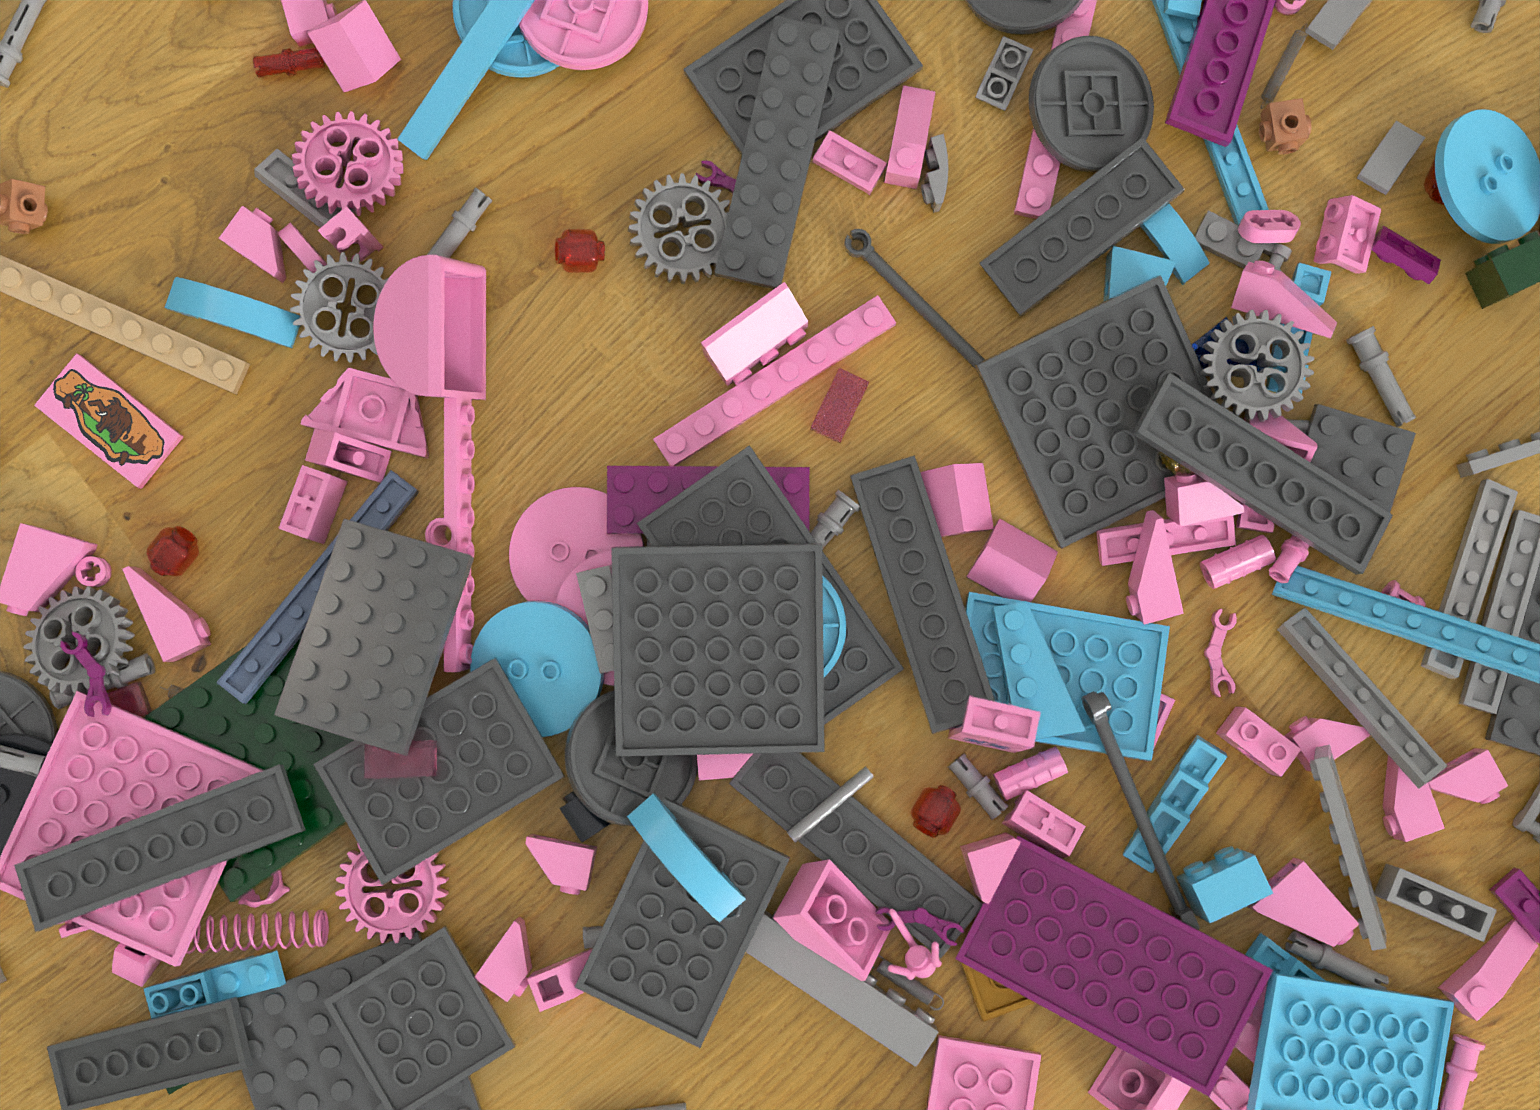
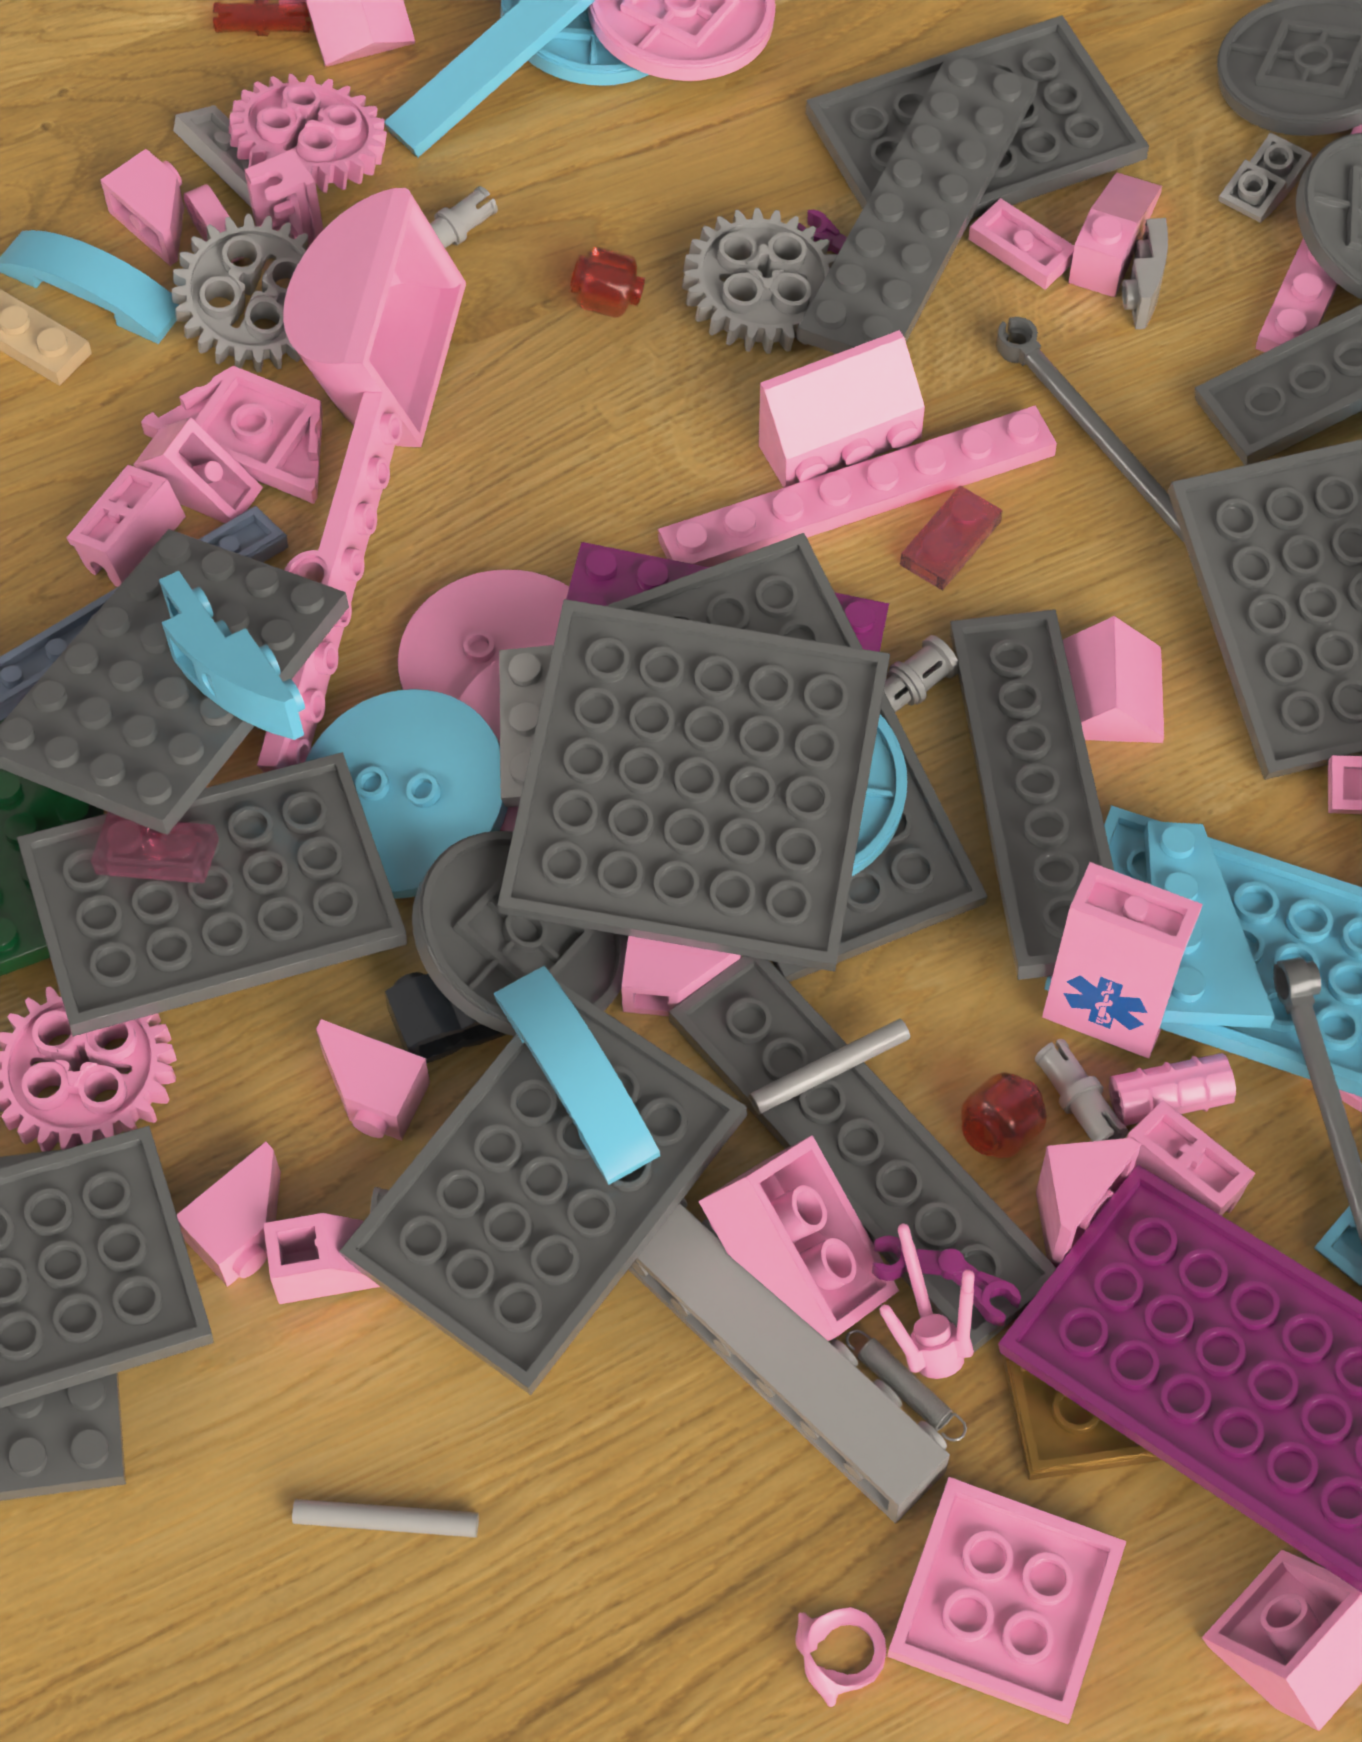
camera: 10 degrees right, 25 degrees down
(417, 645) = (228, 665): none -> medium azure slope
(1012, 563) = (1184, 783): bright pink slope -> none

